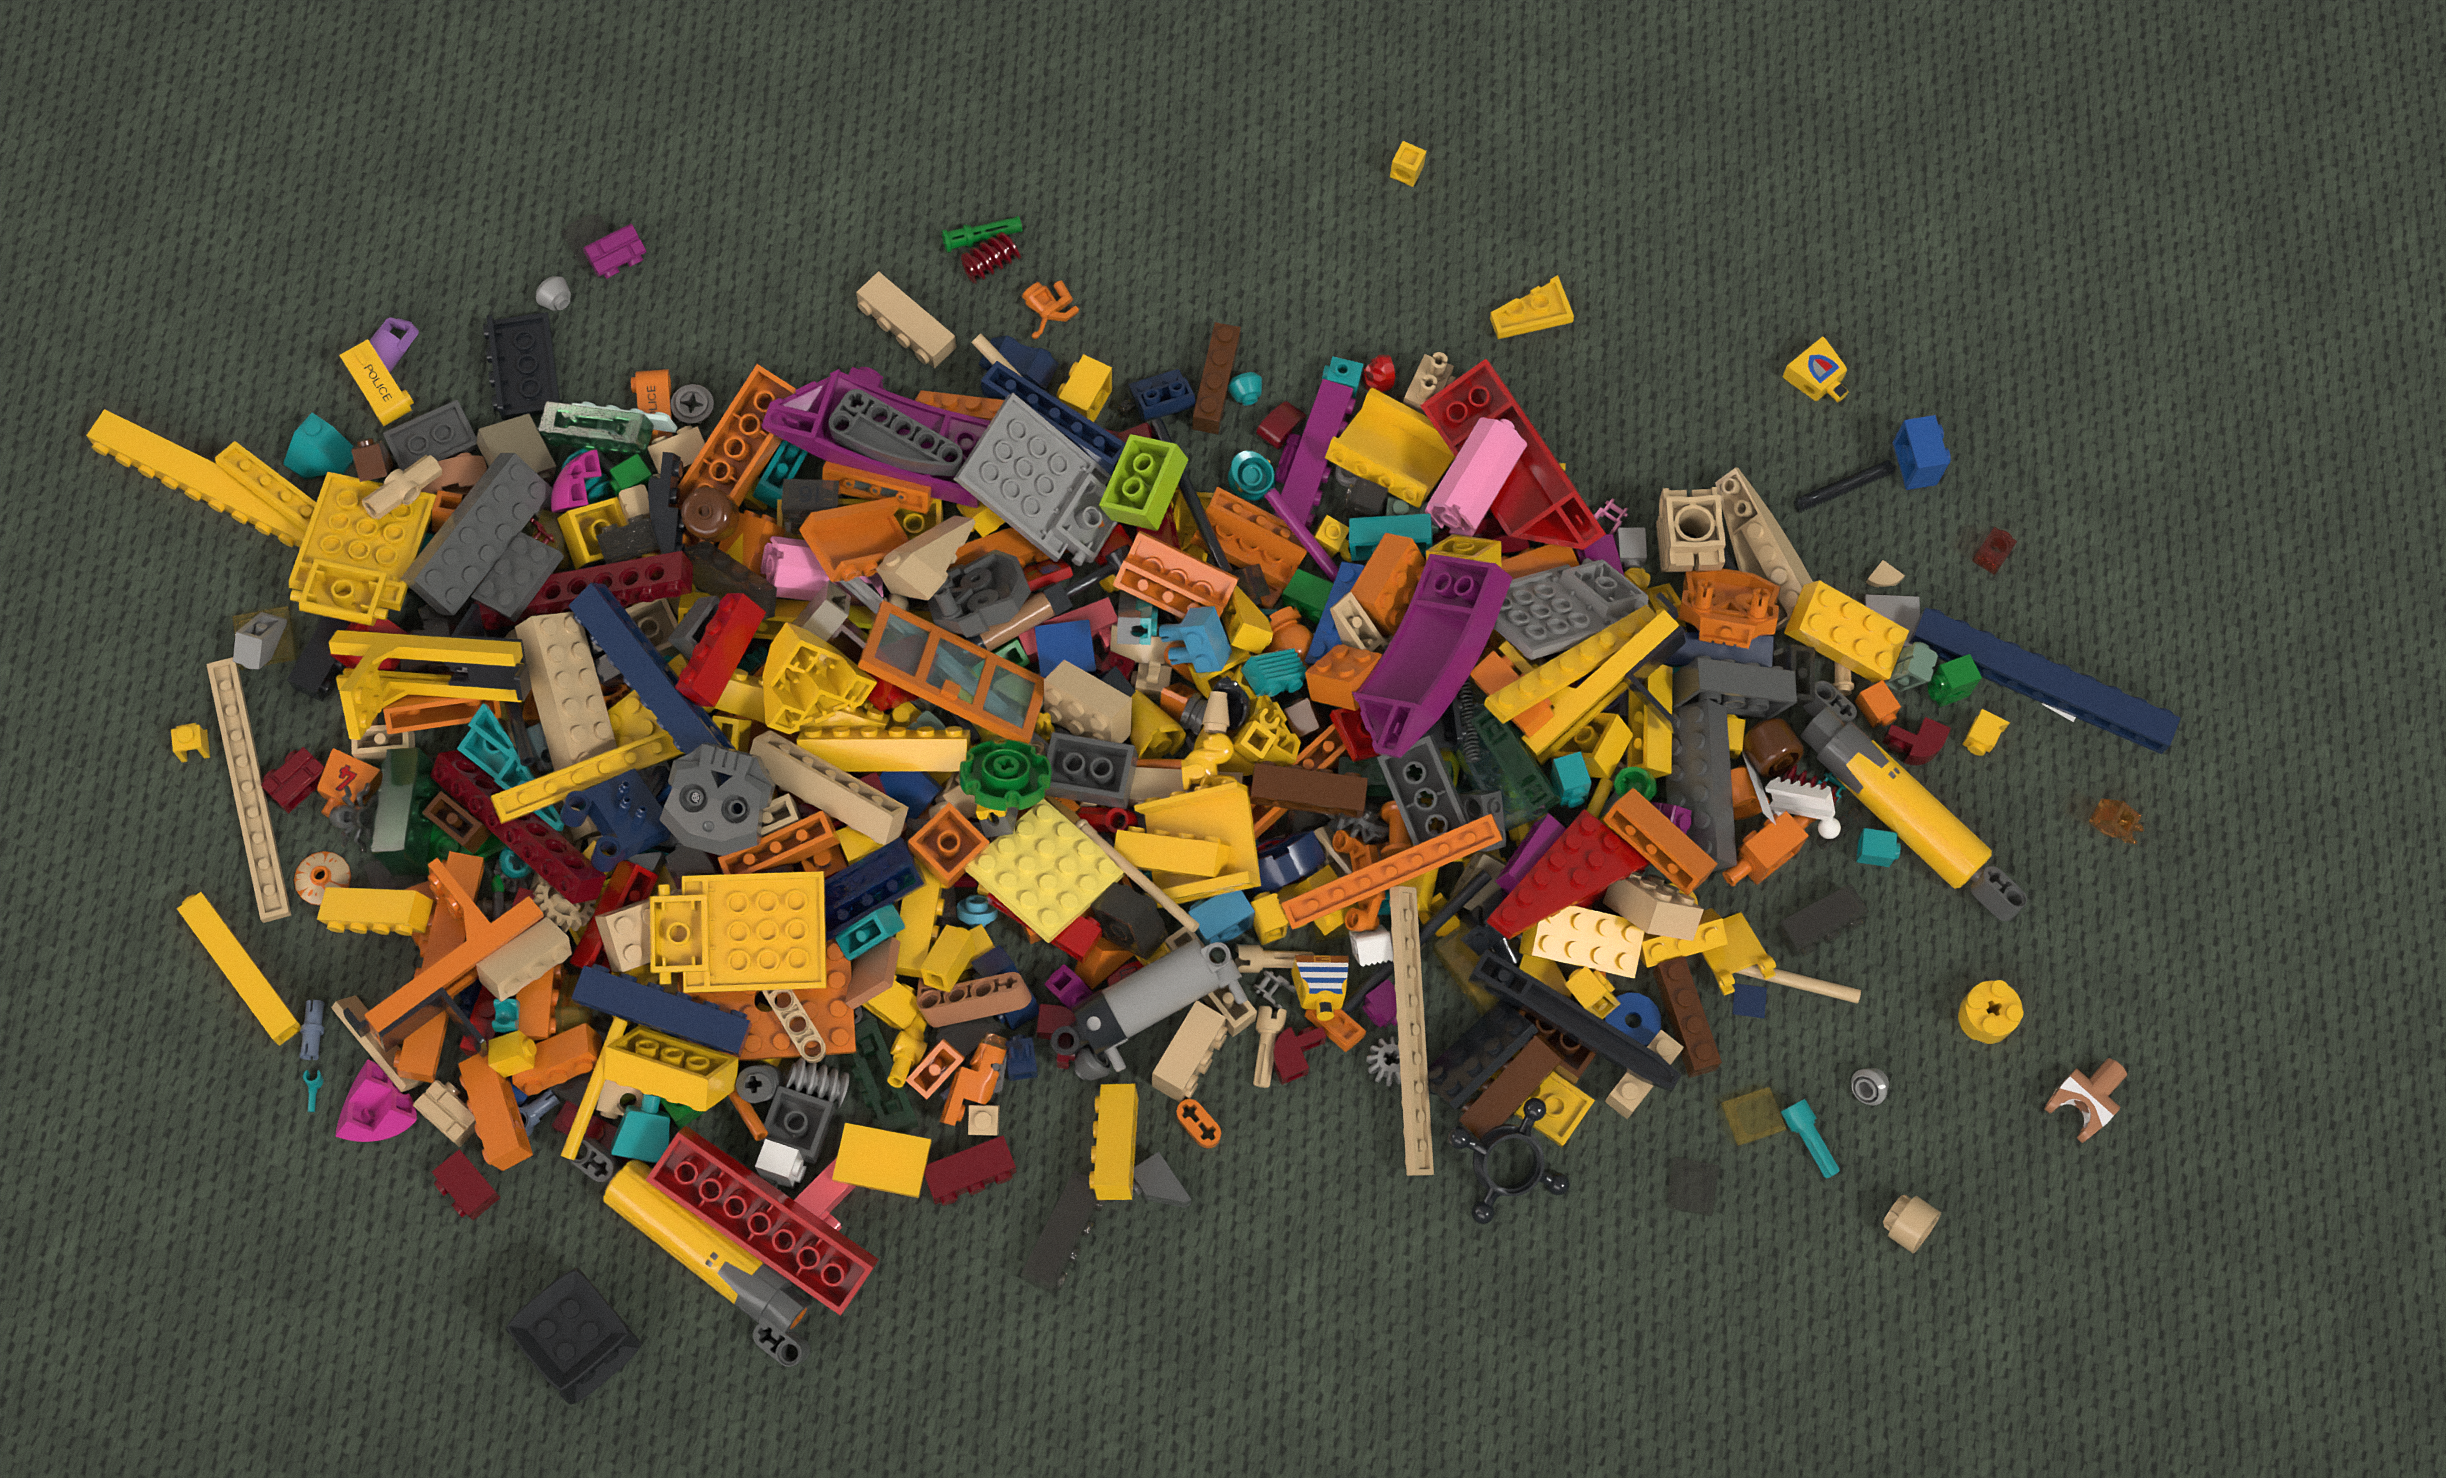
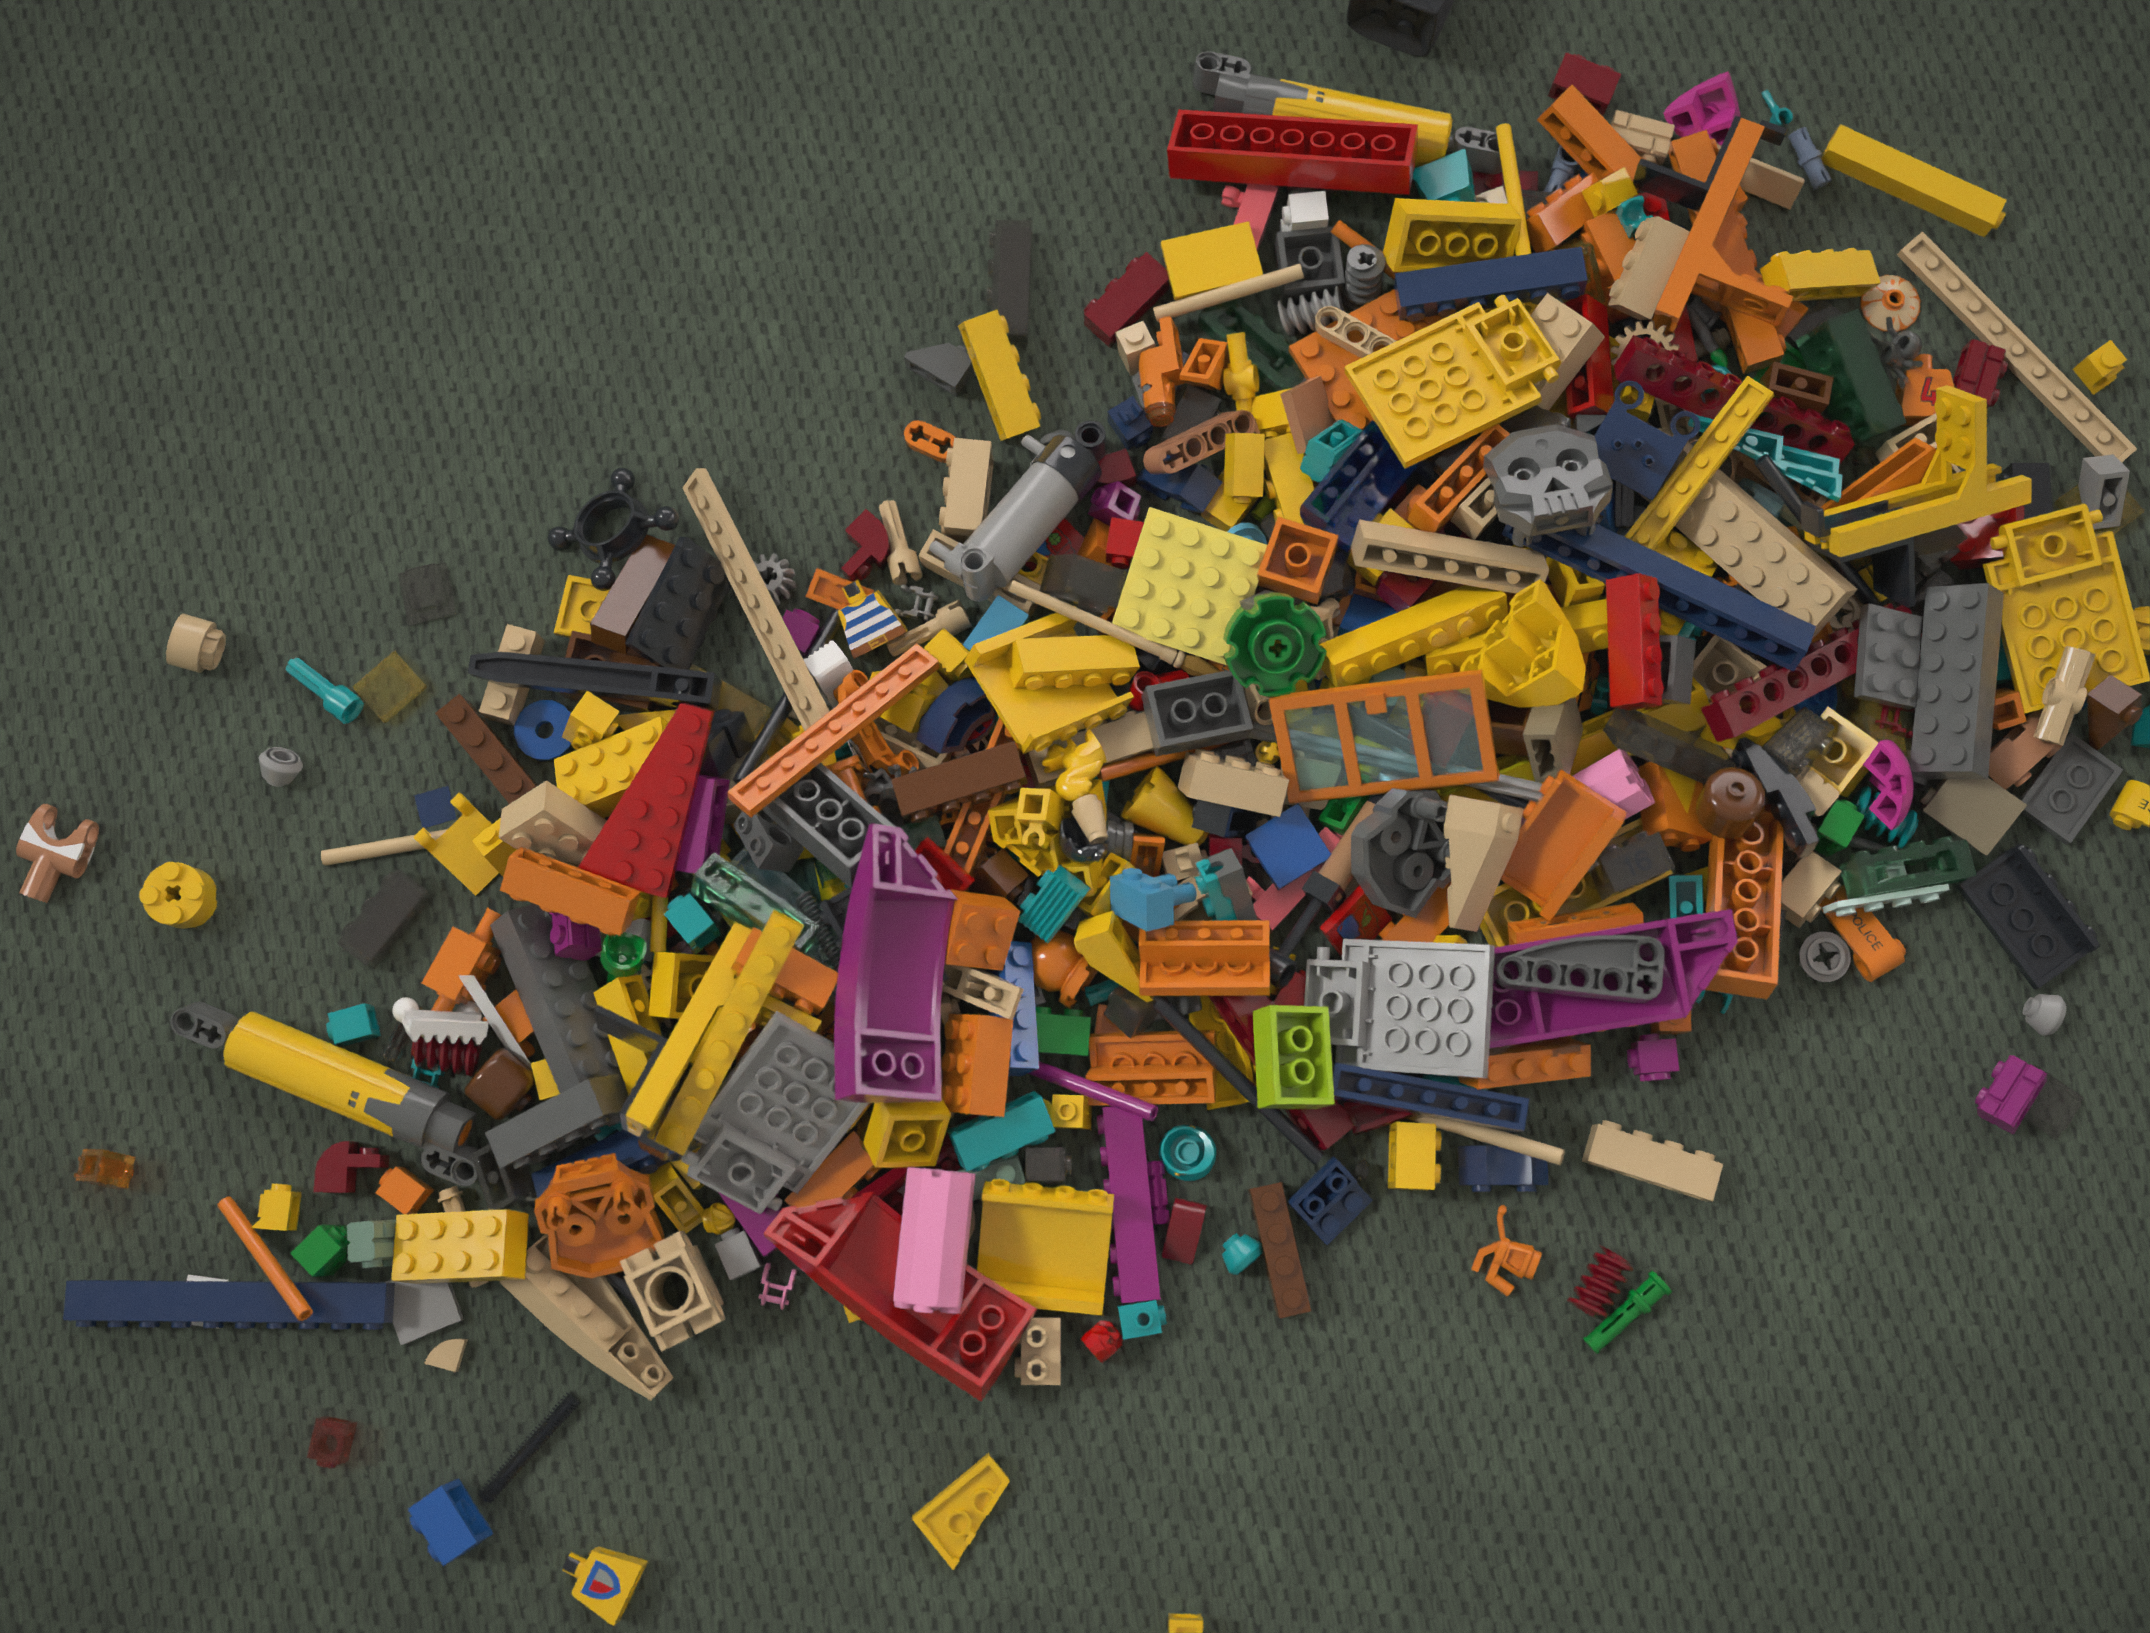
camera: 165 degrees right, 10 degrees up
(882, 1122) = (1229, 292): none -> tan piece
(2005, 695) = (265, 1259): none -> orange piece

